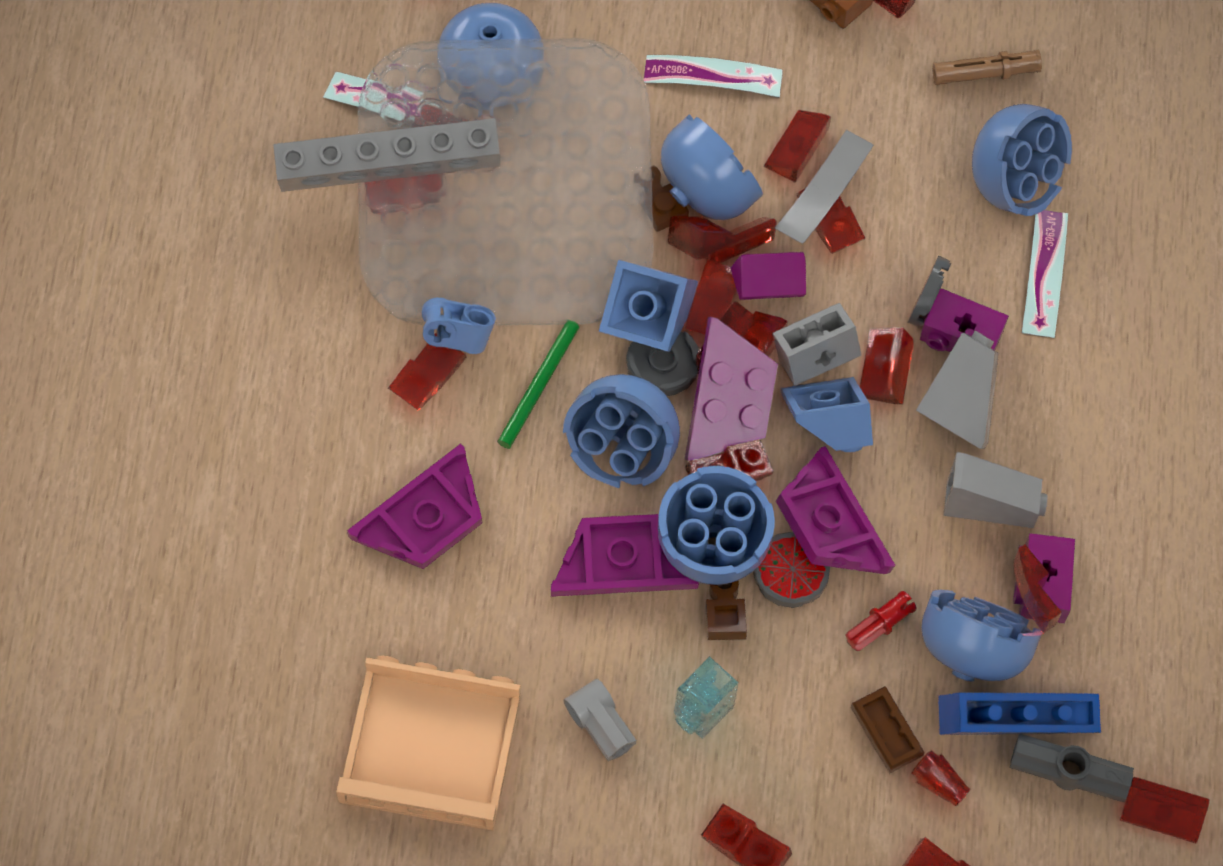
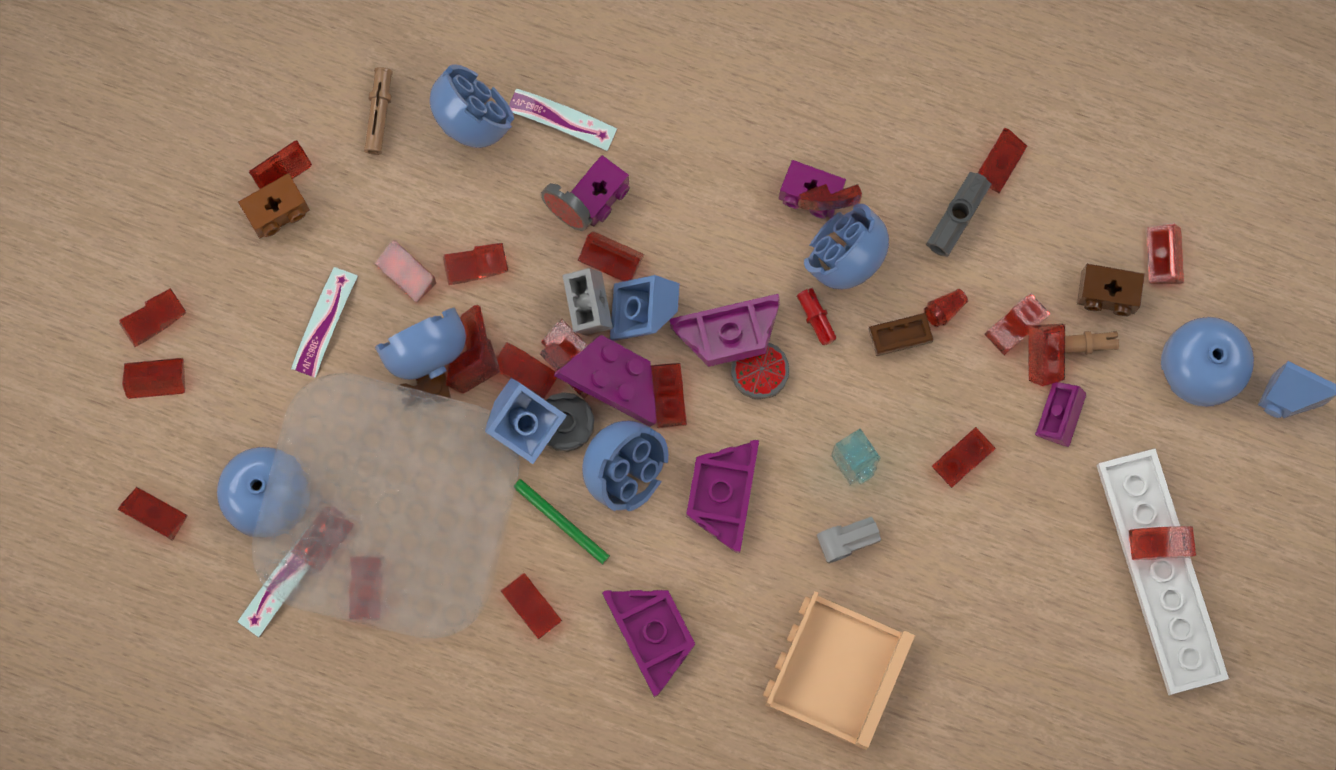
camera: 75 degrees left, 10 degrees up
(387, 155) = (351, 591): light grey brick -> none
(461, 326) = (501, 572): medium blue piece -> none
(720, 506) = (725, 395): medium blue cylinder -> none
(725, 614) = (787, 427): reddish brown plate -> none
(770, 275) = (519, 322): magenta slope -> none
(825, 187) = (453, 261): light grey sticker -> none
(965, 390) = (653, 204): light grey slope -> none
(993, 493) = (739, 208): light grey slope -> none
(1018, 713) = (911, 241): blue slope -> none

